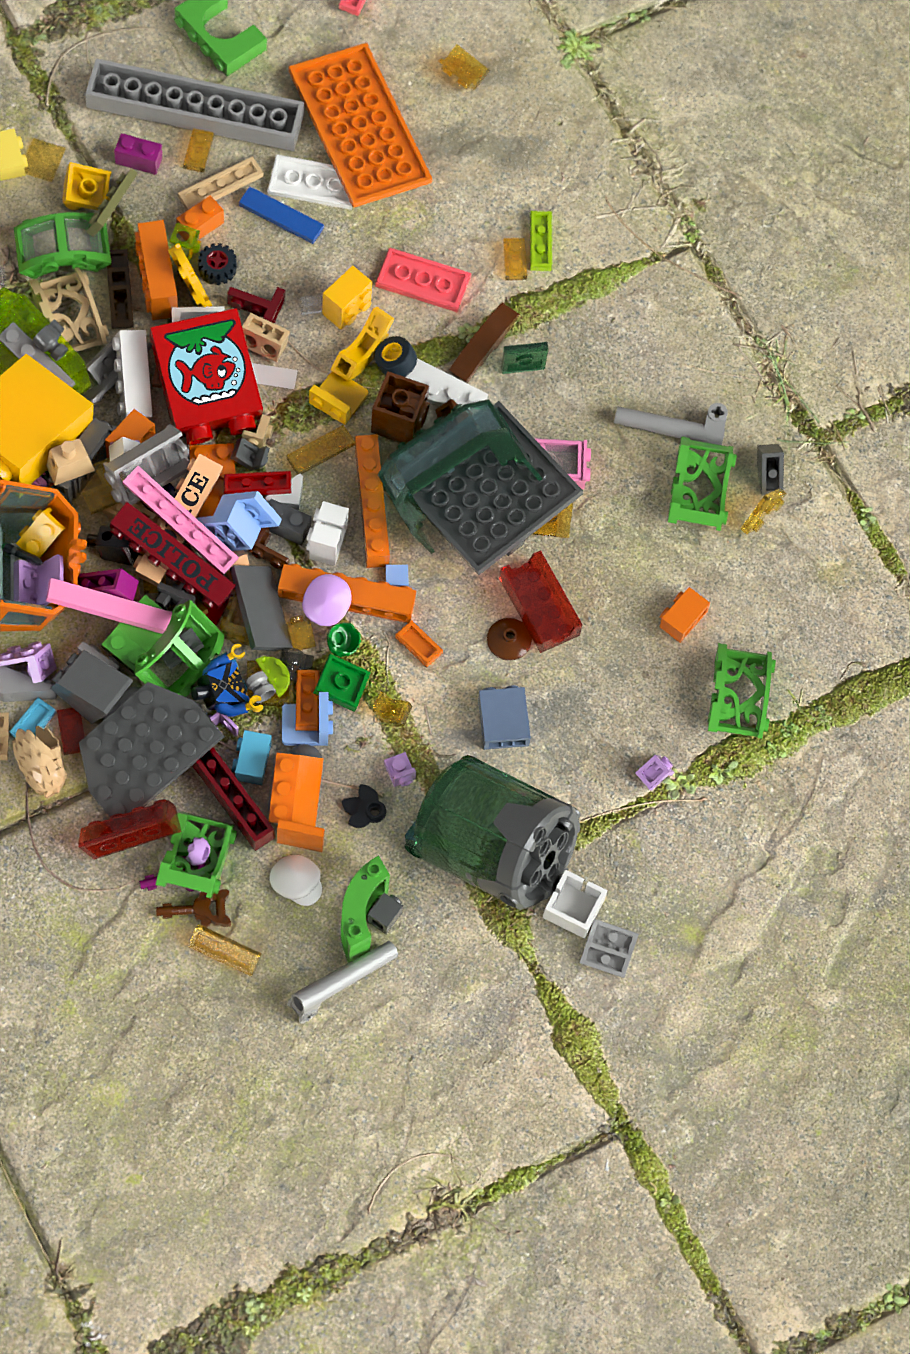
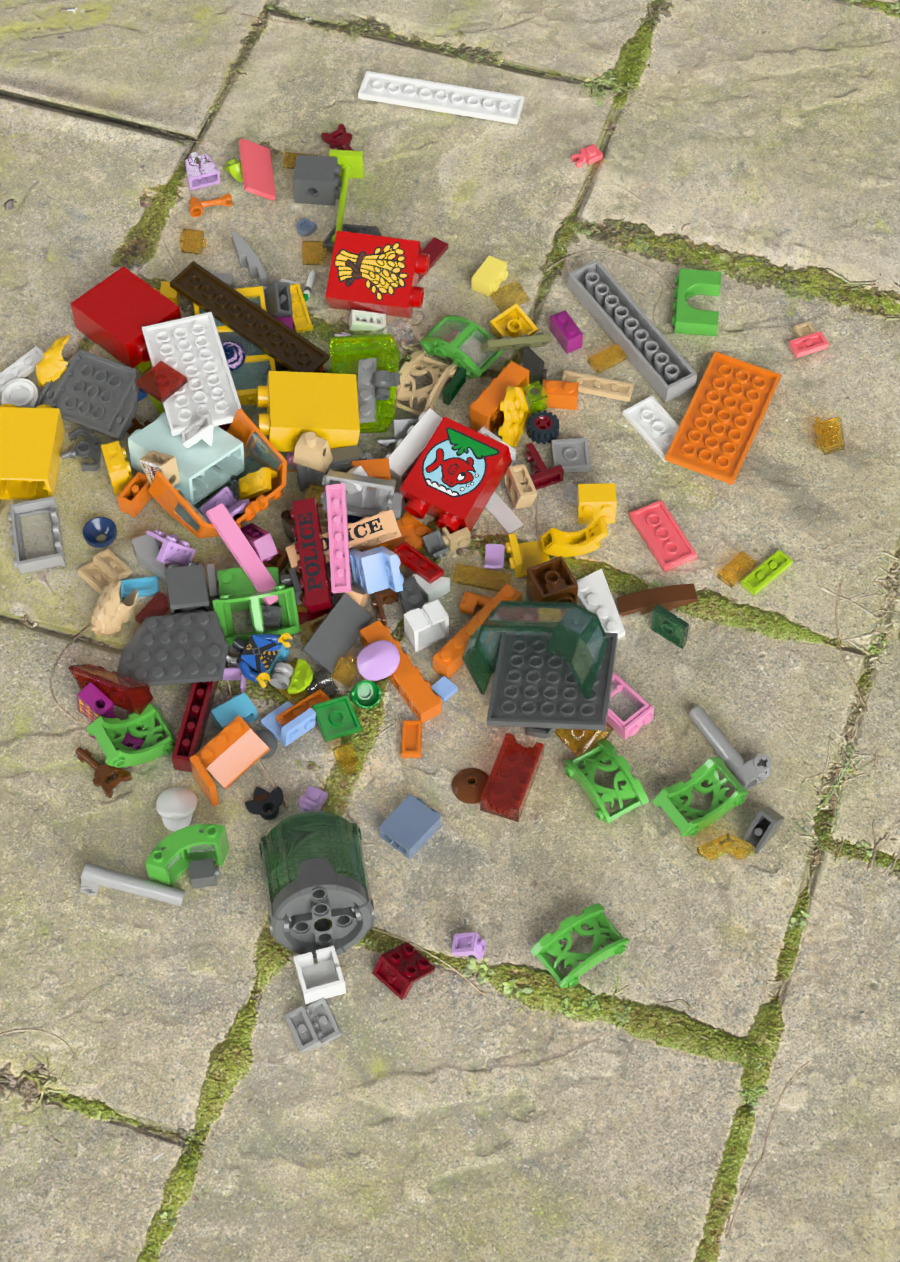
camera: 55 degrees right, 10 degrees down
(97, 290) = (454, 386): none -> dark green tile
(120, 290) = (462, 399): dark brown slope -> none
(131, 859) = (94, 703): none -> magenta torso
(144, 210) = (535, 365): none -> clear smoke slope
(198, 851) = (135, 734): lavender plate -> none
(224, 950) = (88, 807): clear yellow plate -> none
(270, 270) = (571, 454): none -> light grey plate
(281, 215) = (615, 431): blue tile -> none
(311, 422) = (494, 556): none -> lavender bracket
(334, 478) = (471, 601): none -> orange piece
(395, 356) = (588, 562): black wheel -> none
(592, 513) = (600, 754): none -> bright green fence
(628, 839) = (401, 968): none -> dark red bracket
(684, 614) = (599, 867): orange brick -> none

